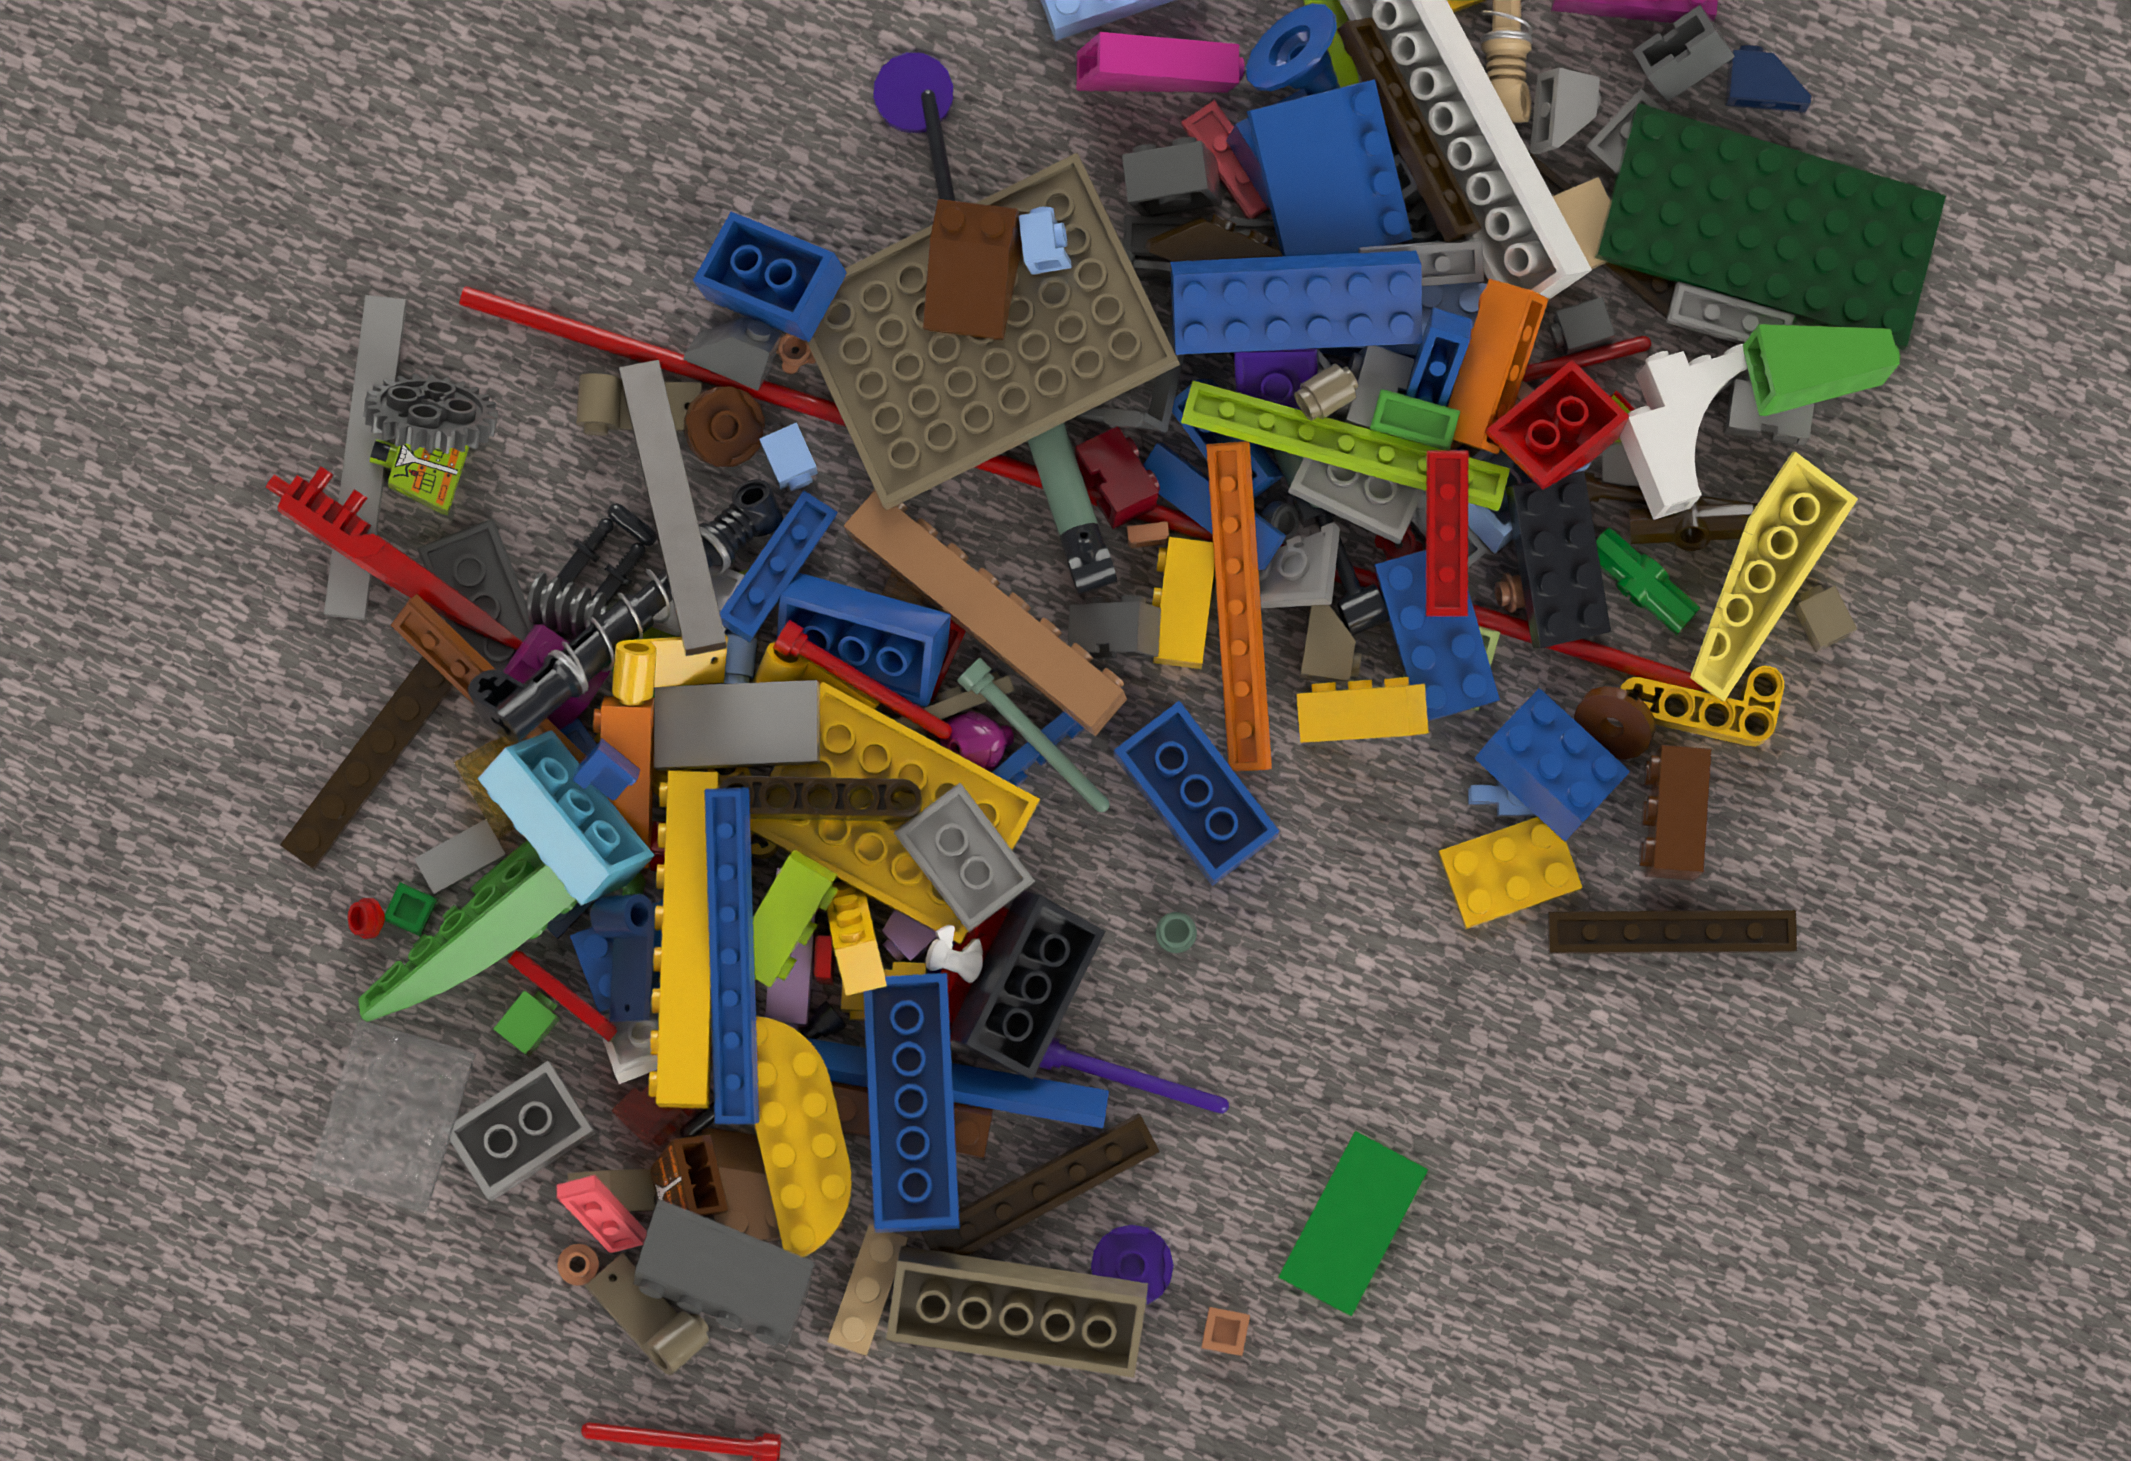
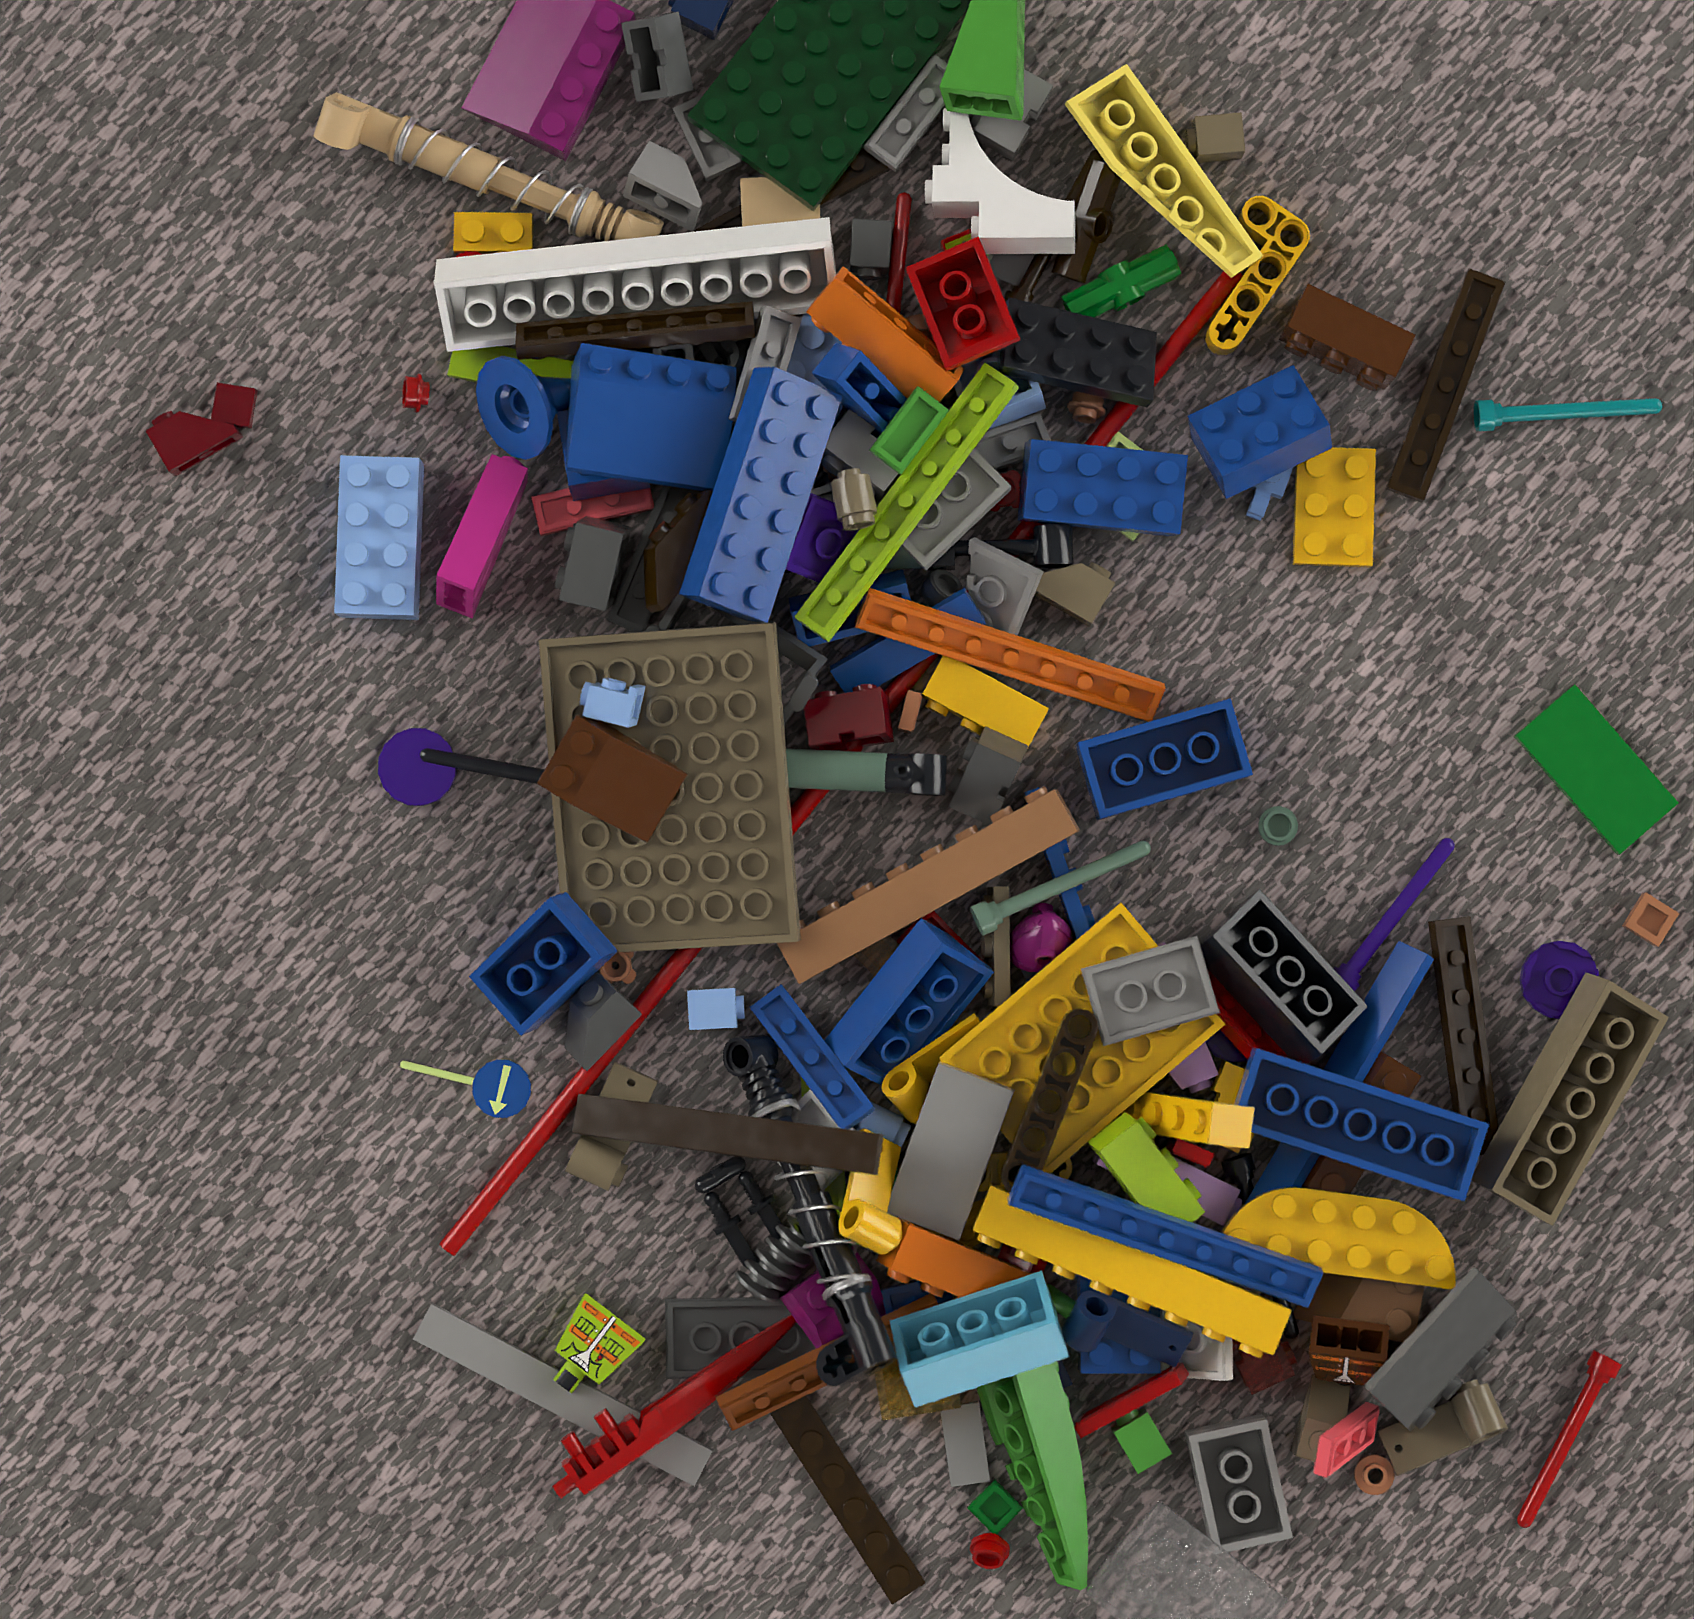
camera: 70 degrees left, 5 degrees up
(430, 413) = (552, 1322): dark grey gear -> none
(606, 771) = (949, 1285): blue panel -> none
(636, 285) = (498, 1088): none -> blue piece
(724, 426) = (662, 1057): reddish brown tile -> none
(795, 642) = (892, 1068): red piece -> none
(867, 1291) = (1498, 1228): tan plate -> none
(941, 955) = (1230, 1044): white piece -> none
(1362, 711) = (1150, 581): yellow brick -> none
(1447, 533) = (1024, 442): red tile -> none
(1614, 703) = (1261, 359): reddish brown tile -> none
(1661, 988) = (1491, 415): none -> teal piece

